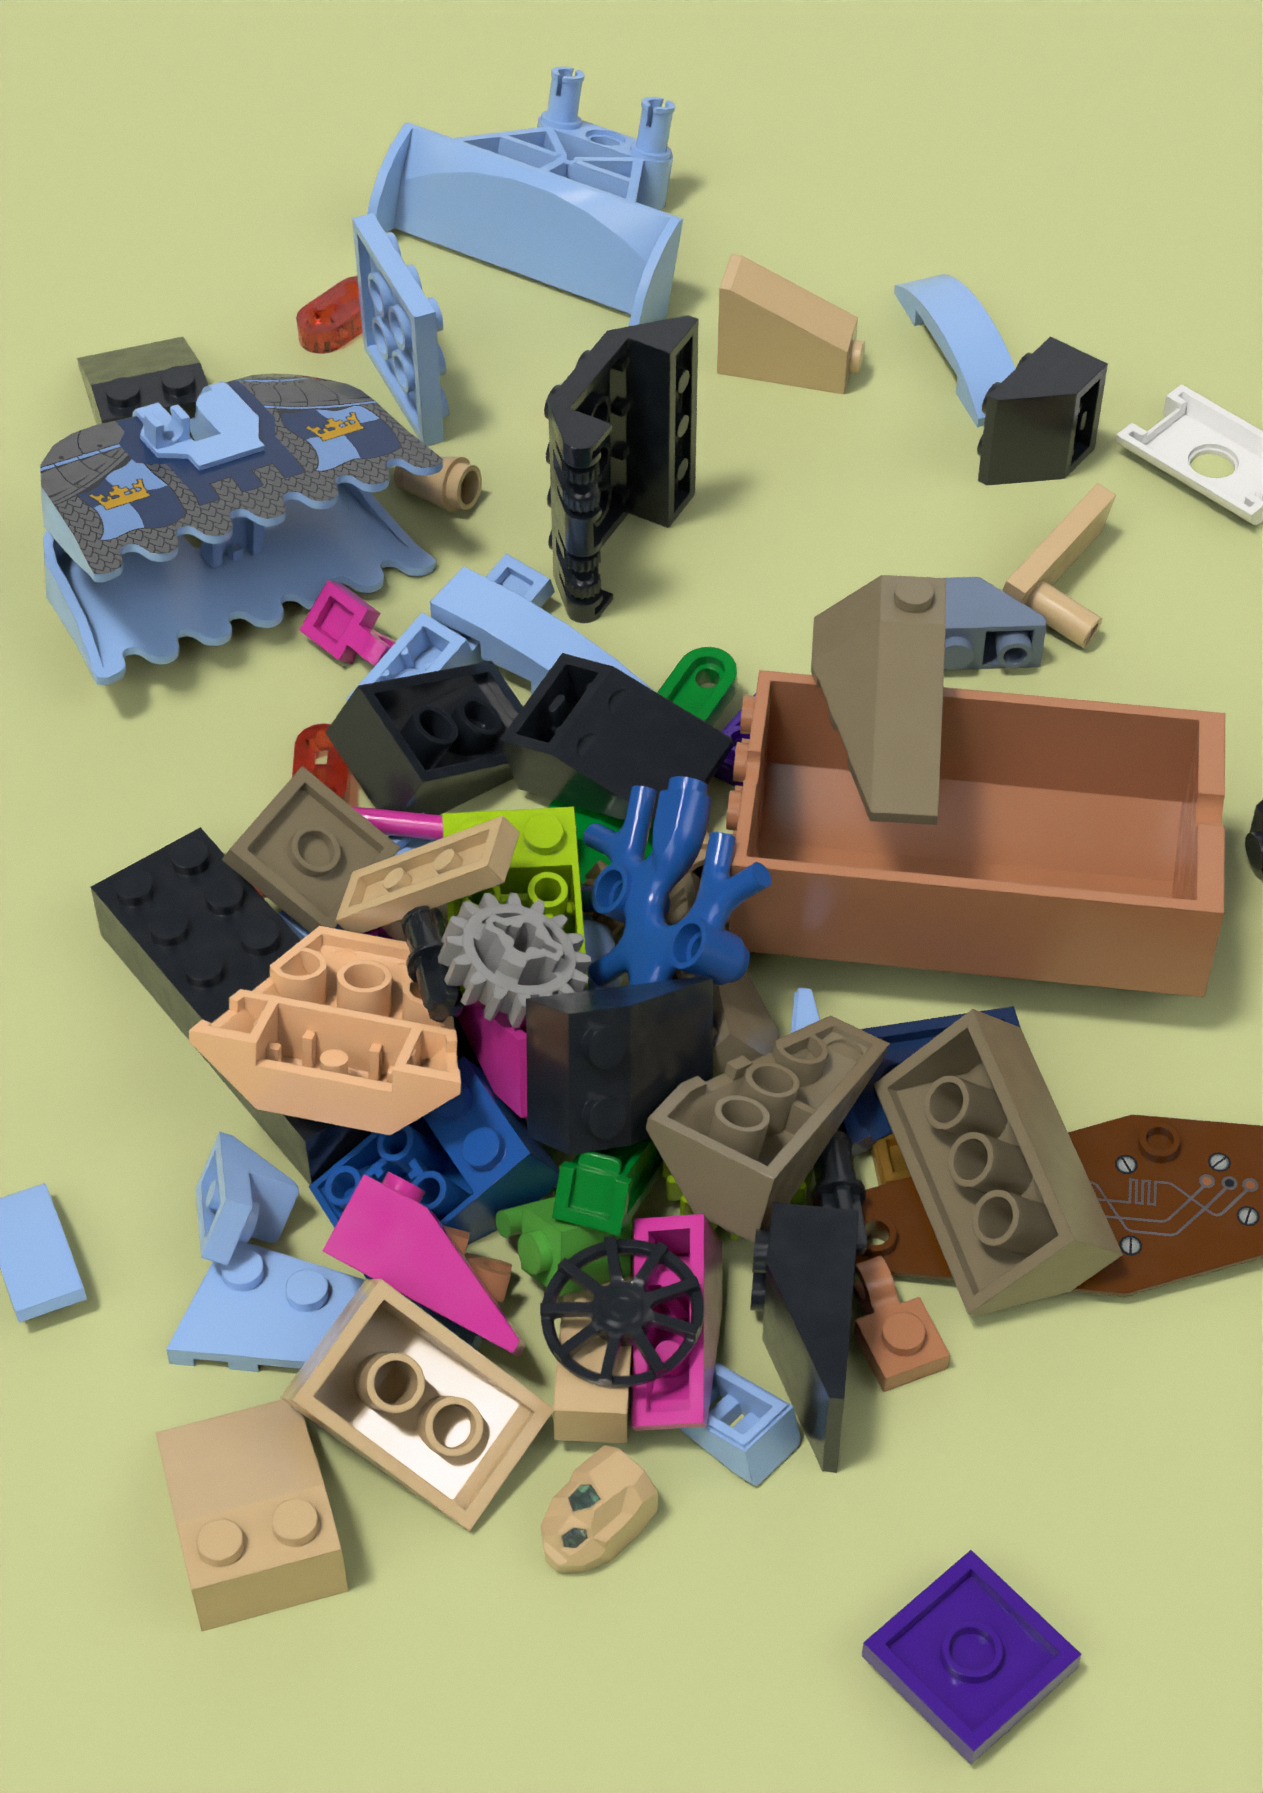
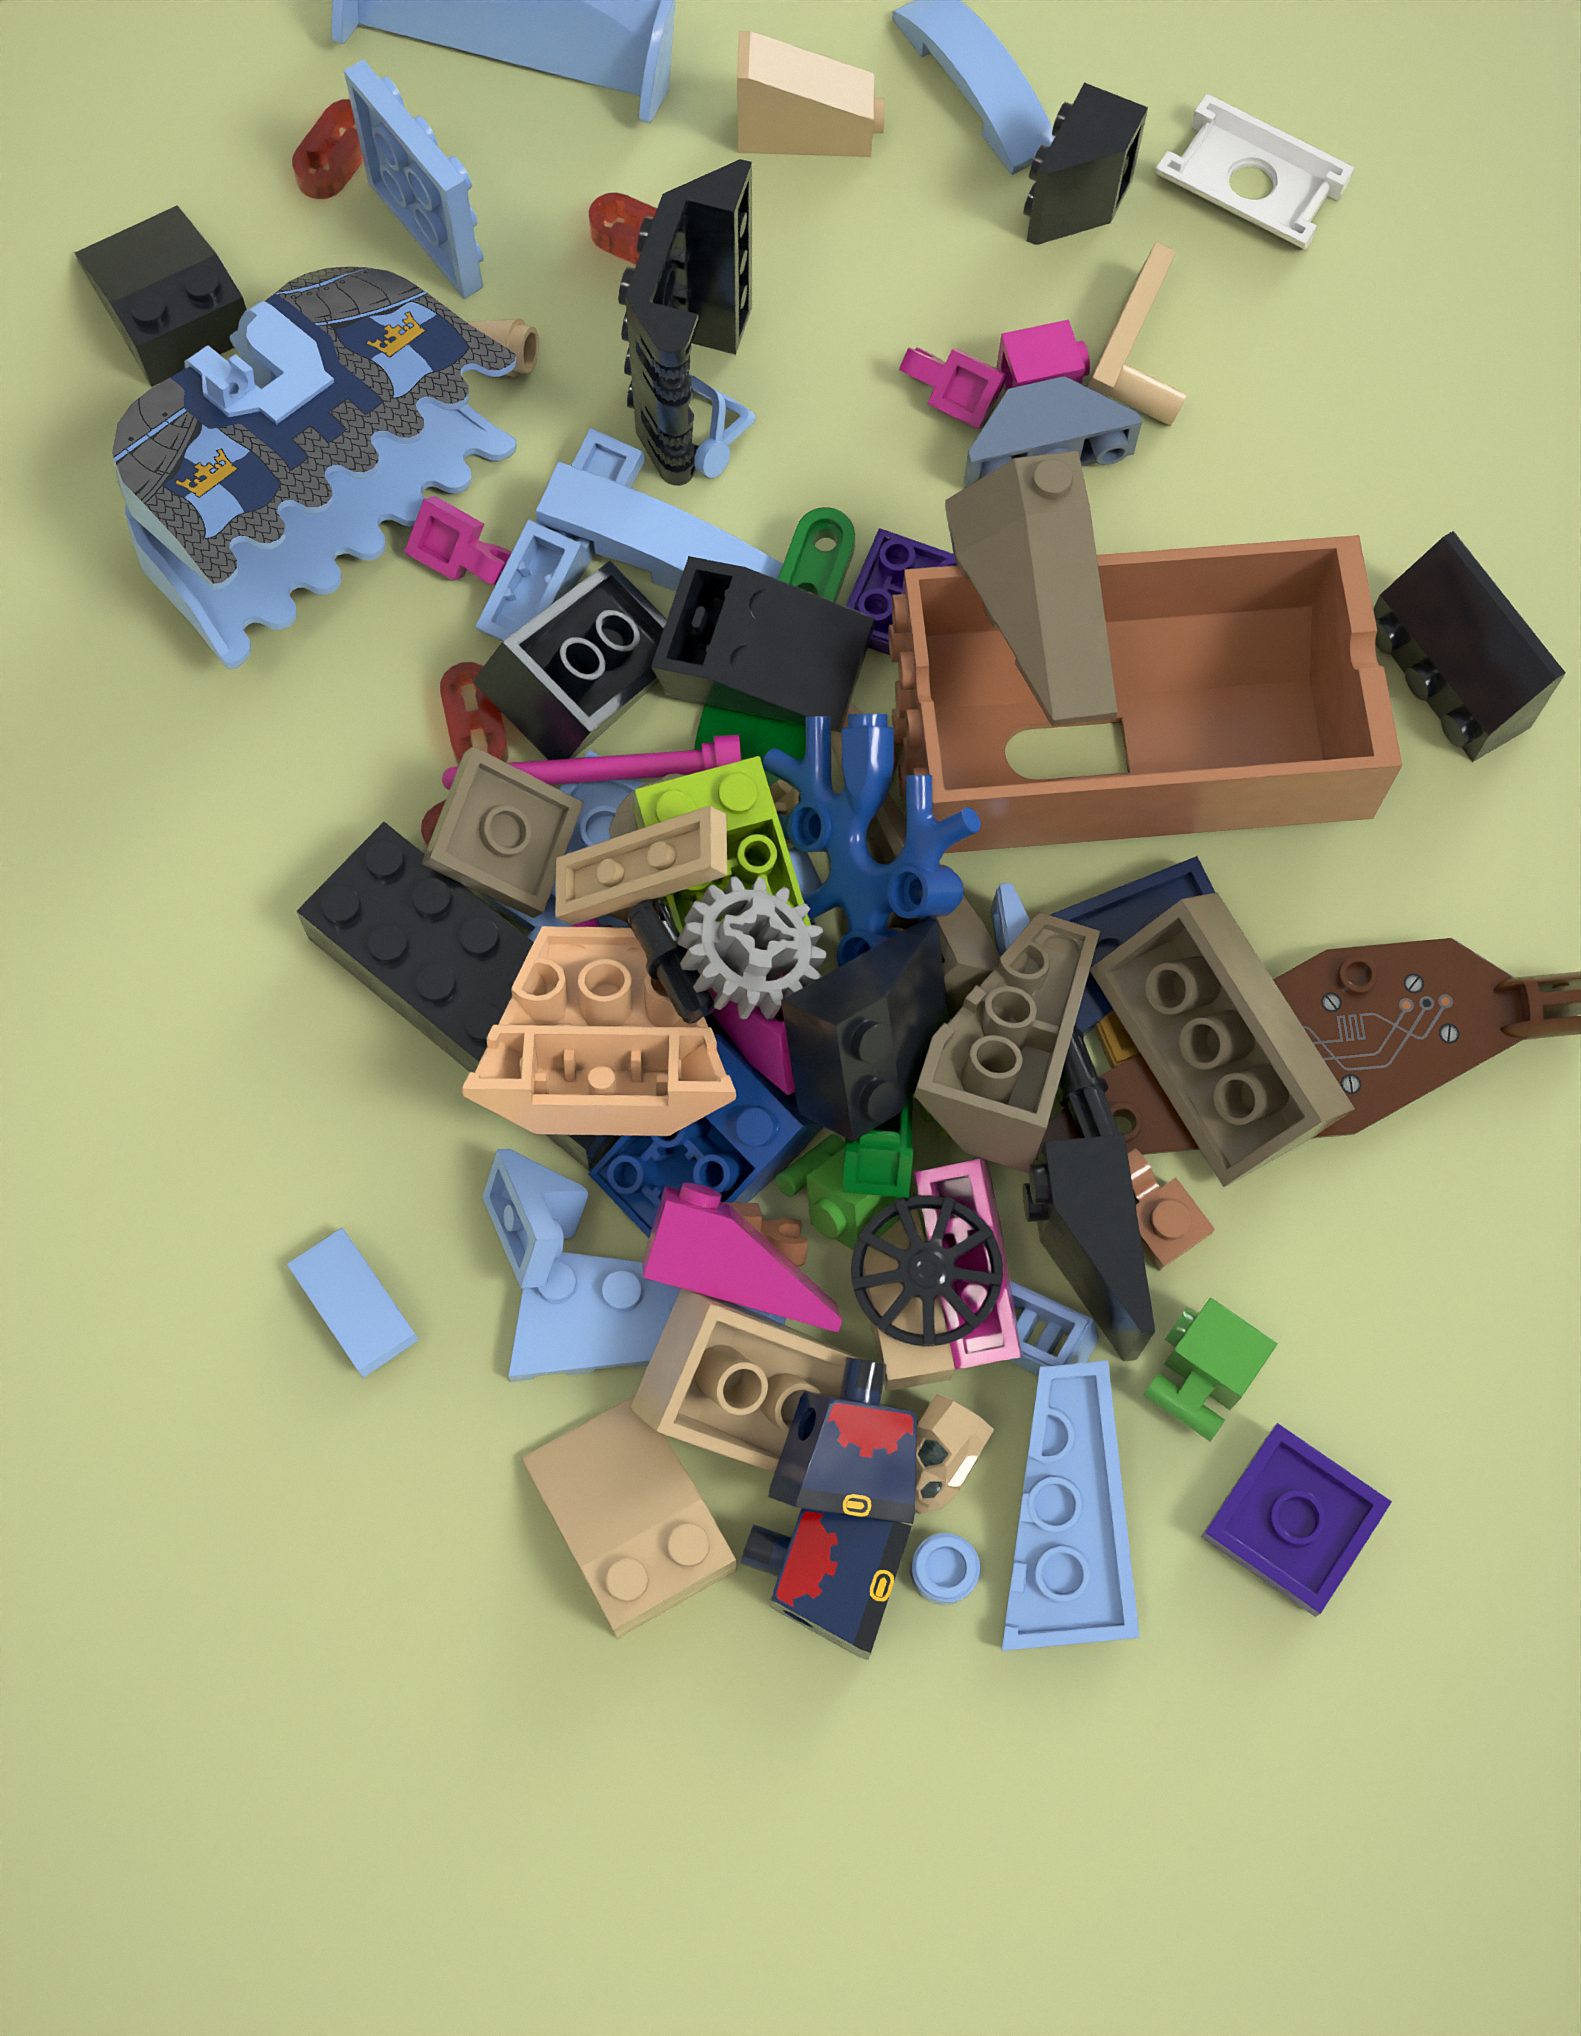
camera: 15 degrees left, 20 degrees up
(448, 1602) = (832, 1573): none -> torso
(496, 1475) = (850, 1451): none -> dark blue torso
(571, 1631) = (945, 1568): none -> light blue tile
(620, 597) = (714, 452): none -> light blue piece
(714, 1629) = (1072, 1531): none -> light blue wing
(867, 566) = (961, 385): none -> dark pink plate
(916, 1474) = (1217, 1358): none -> bright green brick
(964, 556) = (1042, 355): none -> dark pink brick

